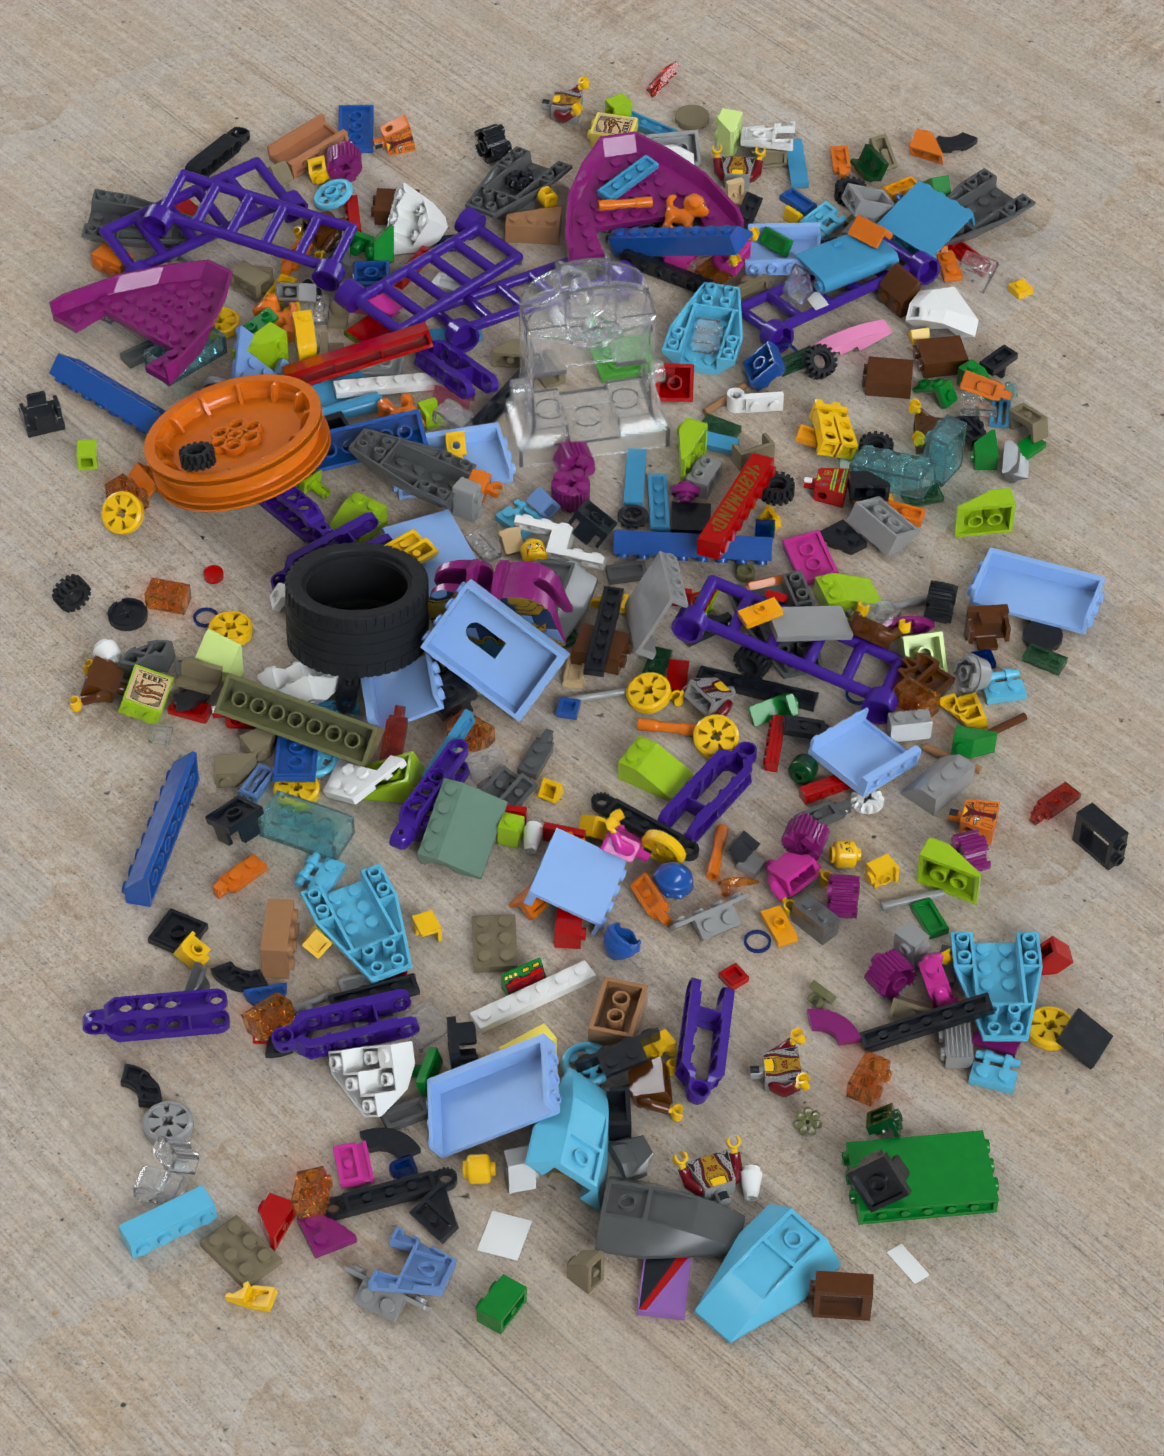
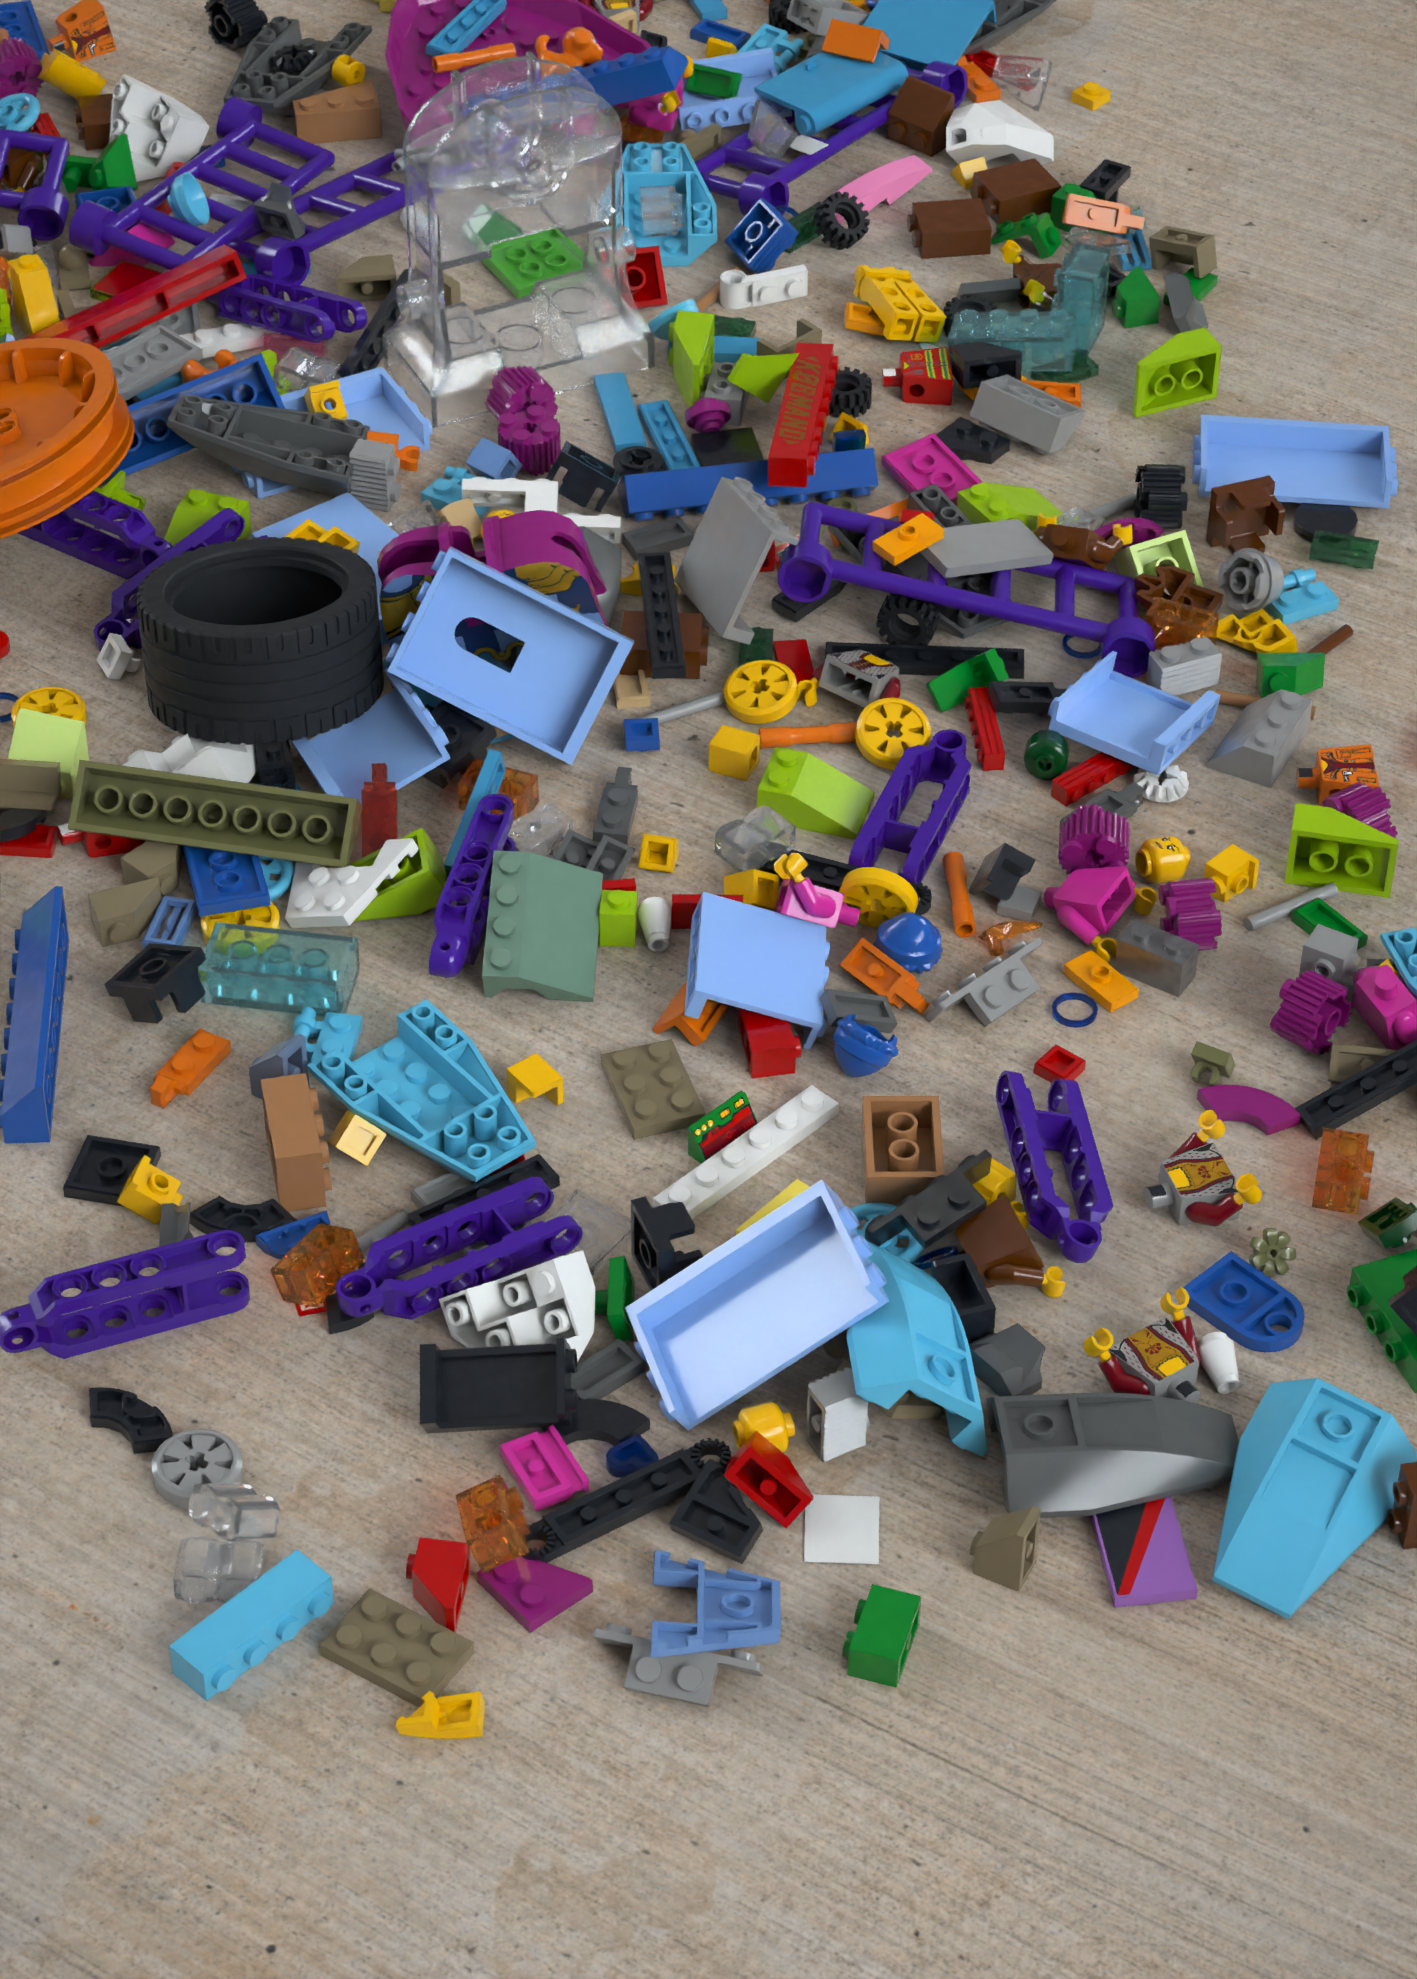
camera: 15 degrees left, 5 degrees down
(287, 888) = (280, 1060): none -> sand blue slope
(339, 1112) = (497, 1387): none -> black panel
(353, 395) = (150, 359): none -> light grey tile
(377, 171) = (70, 75): none -> yellow brick
(415, 284) = (188, 200): none -> medium azure piece
(468, 300) = (278, 213): none -> dark grey slope
(470, 1198) = (769, 1479): none -> red slope
(605, 795) = (755, 839): none -> clear brick
(618, 731) = (734, 752): none -> yellow panel
(624, 1082) = (920, 1261): none -> clear blue piece
(629, 918) = (868, 1008): none -> dark grey tile
(696, 415) = (660, 324): none -> medium azure piece
(722, 471) = (761, 374): none -> lime slope
(780, 1148) = (1246, 1305): none -> blue tile
(895, 430) = (995, 290): none -> dark grey tile

